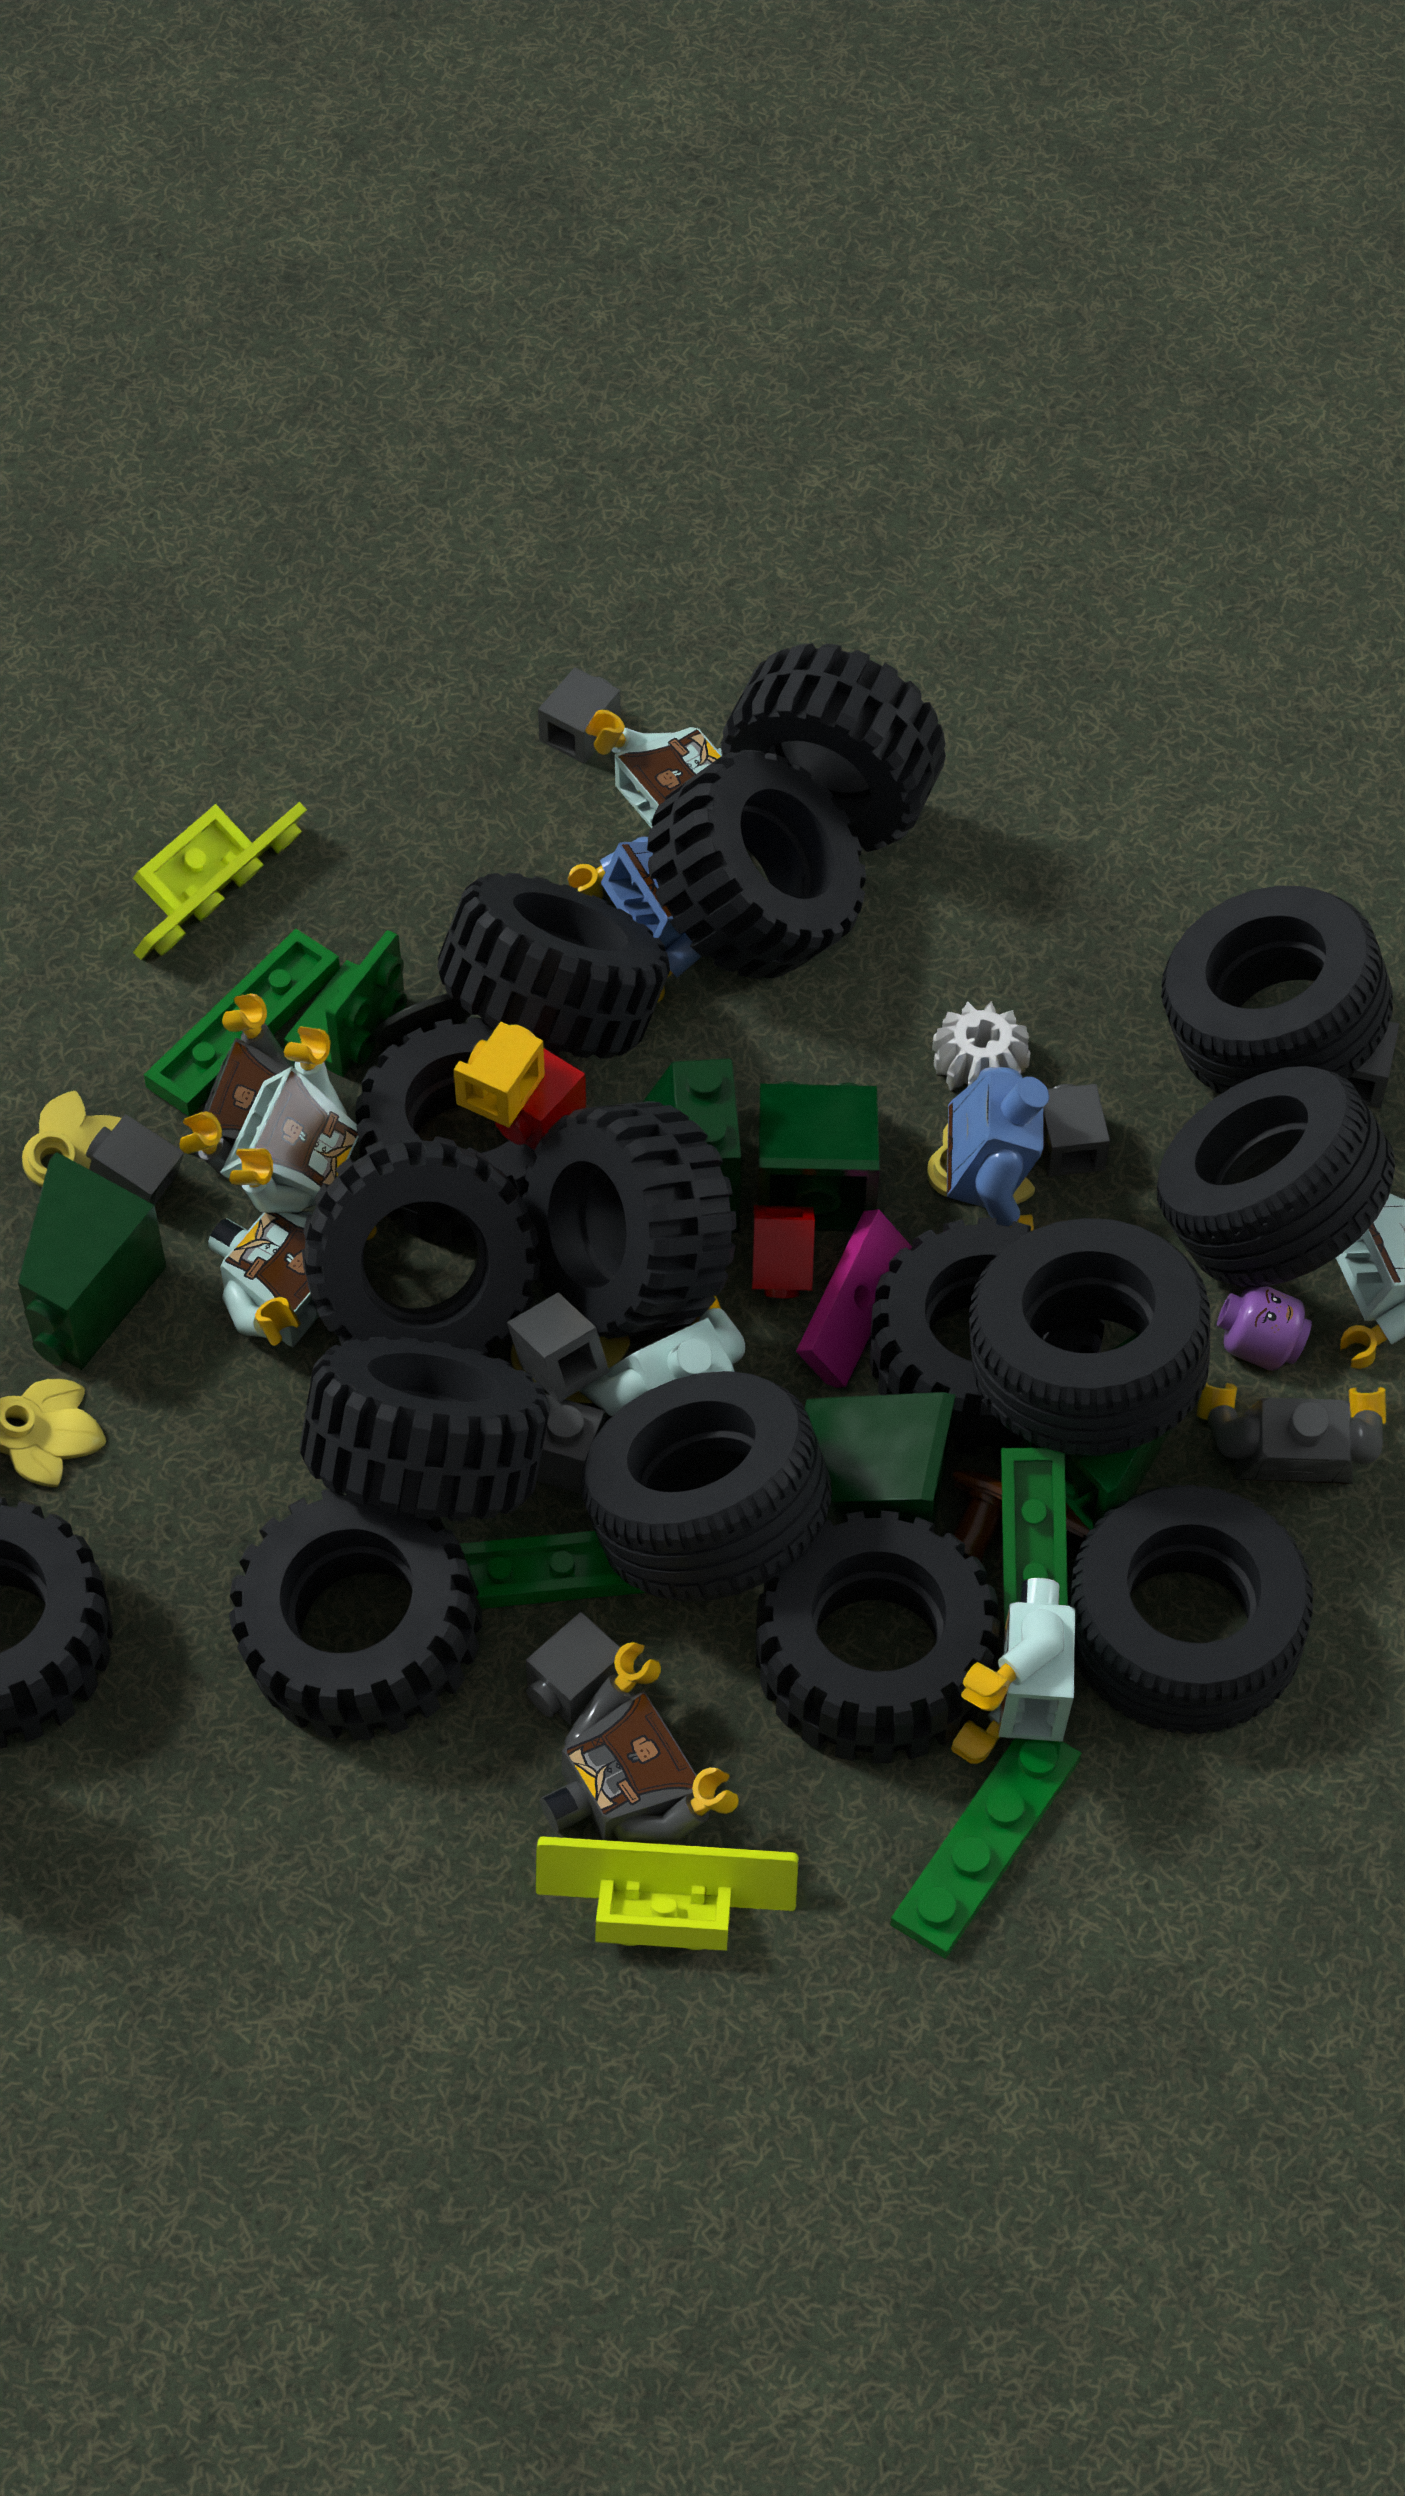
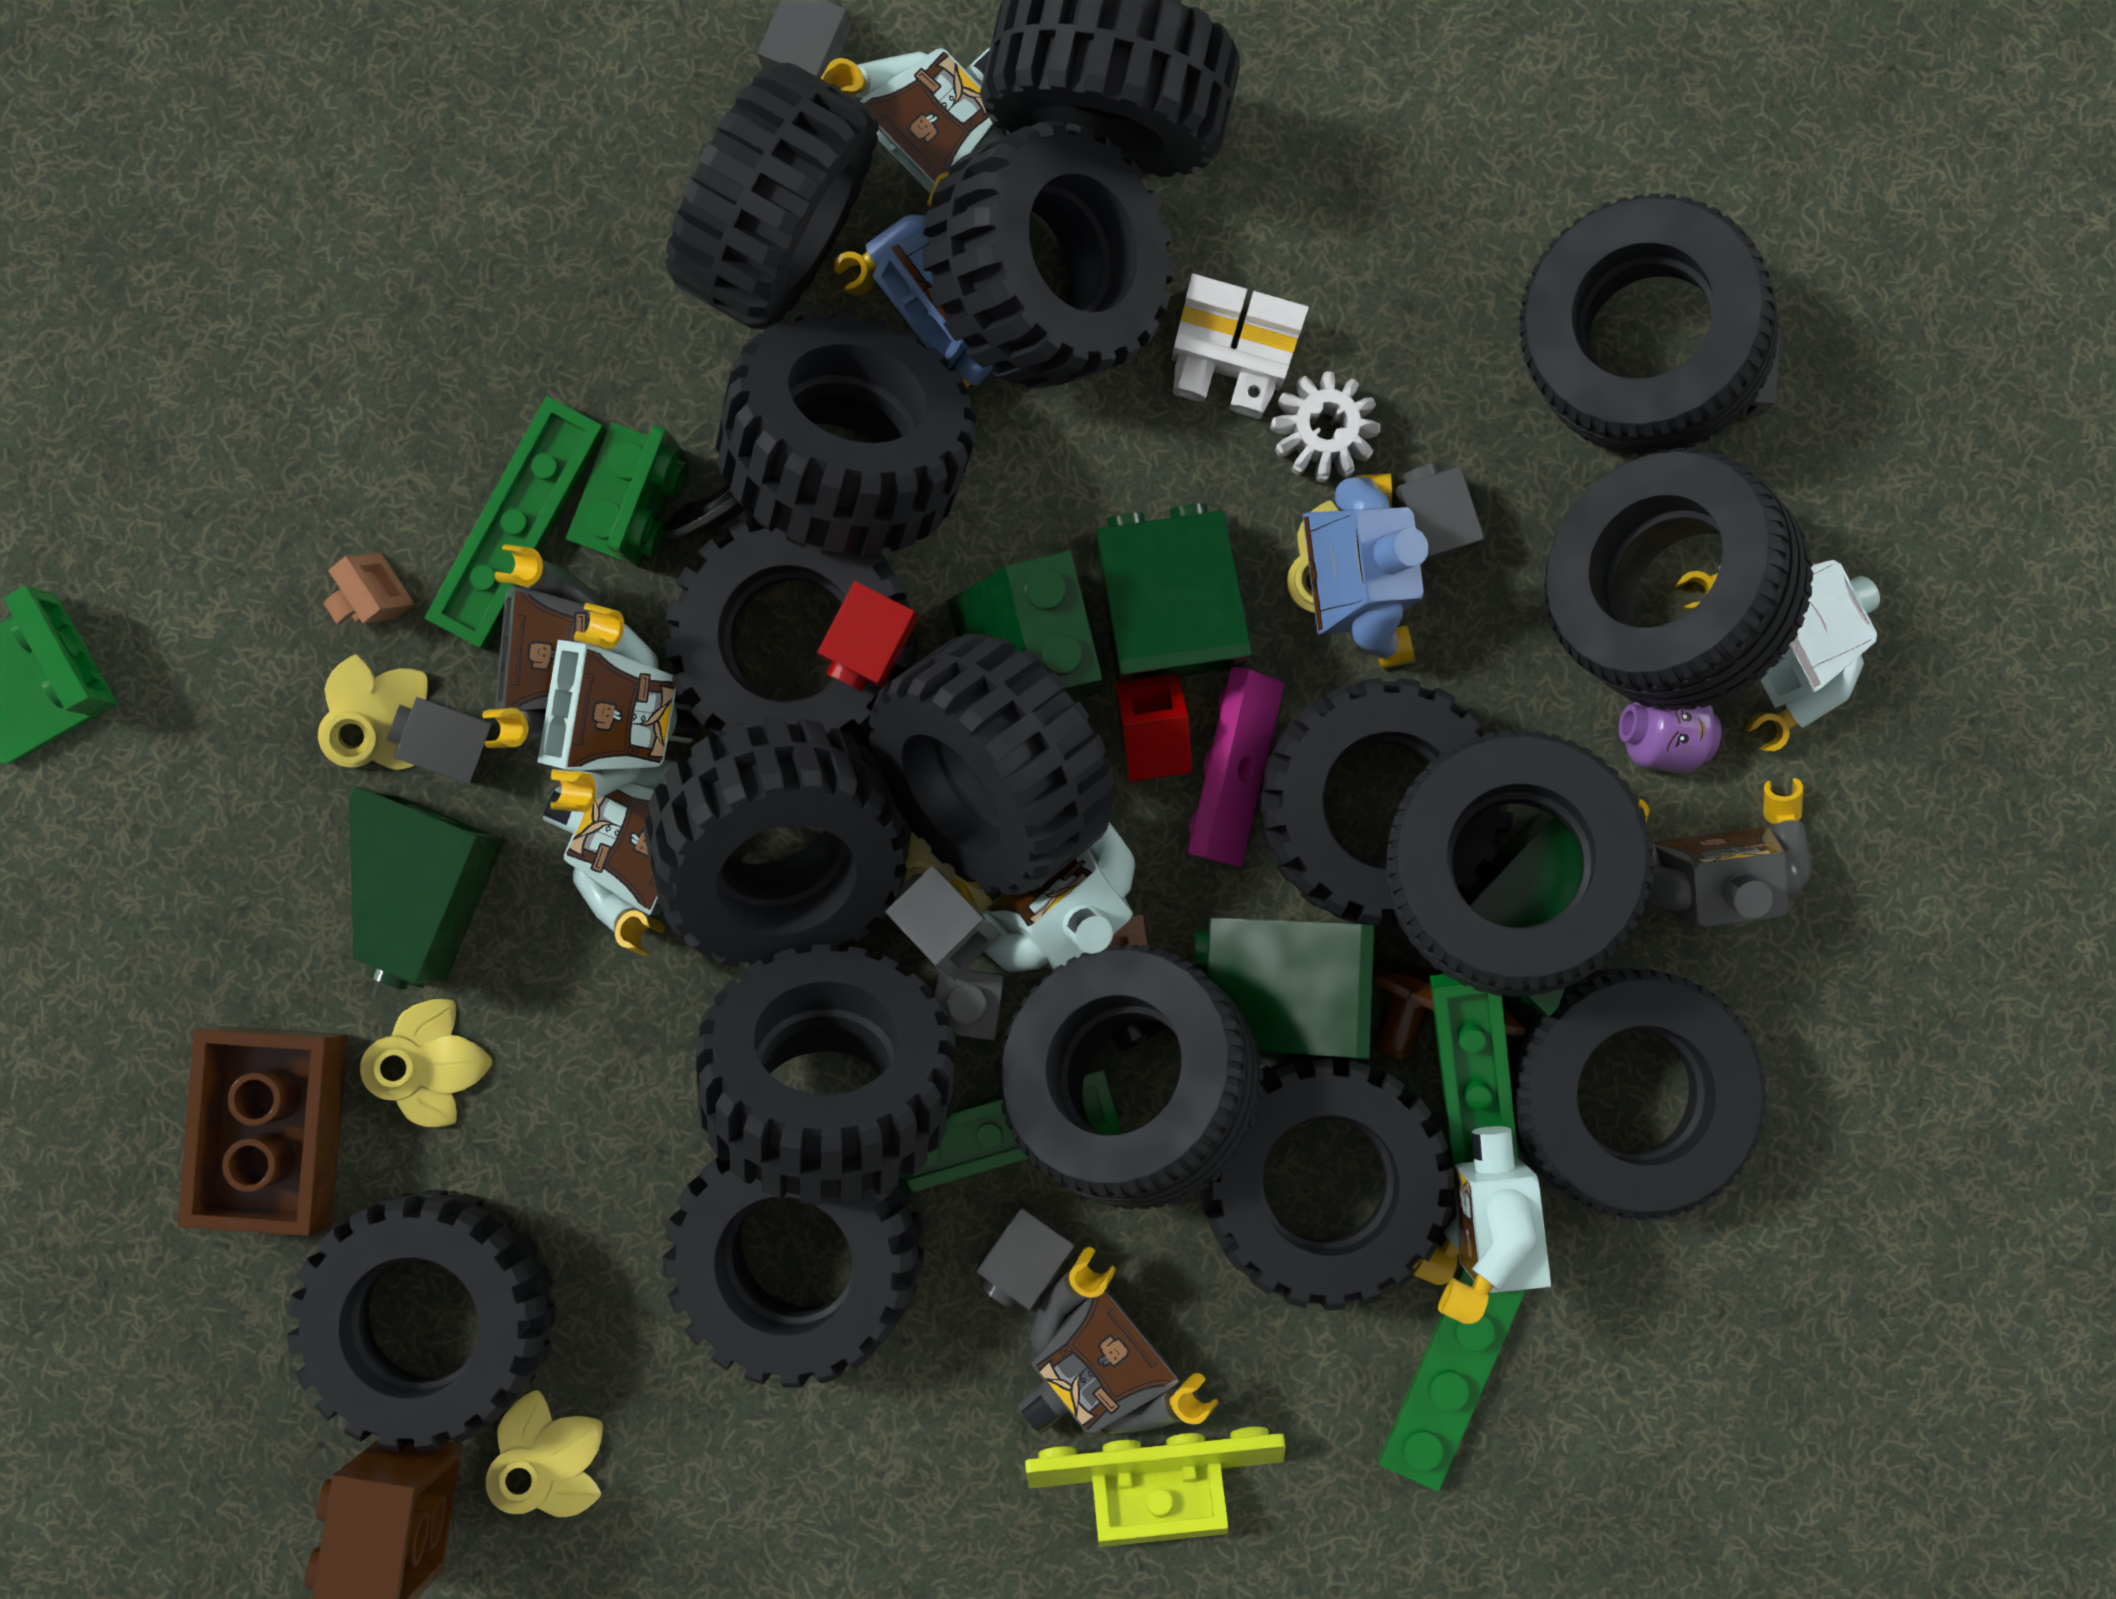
camera: 10 degrees left, 30 degrees up
(73, 1782) = (551, 1453): none -> light yellow plate
(96, 1050) = (366, 590): none -> nougat tile
(199, 864) = (423, 327): neon yellow bracket -> none
(500, 1074) = (824, 642): yellow brick -> none
(529, 784) = (771, 195): none -> black tyre
(912, 976) = (1261, 352): none -> white hips

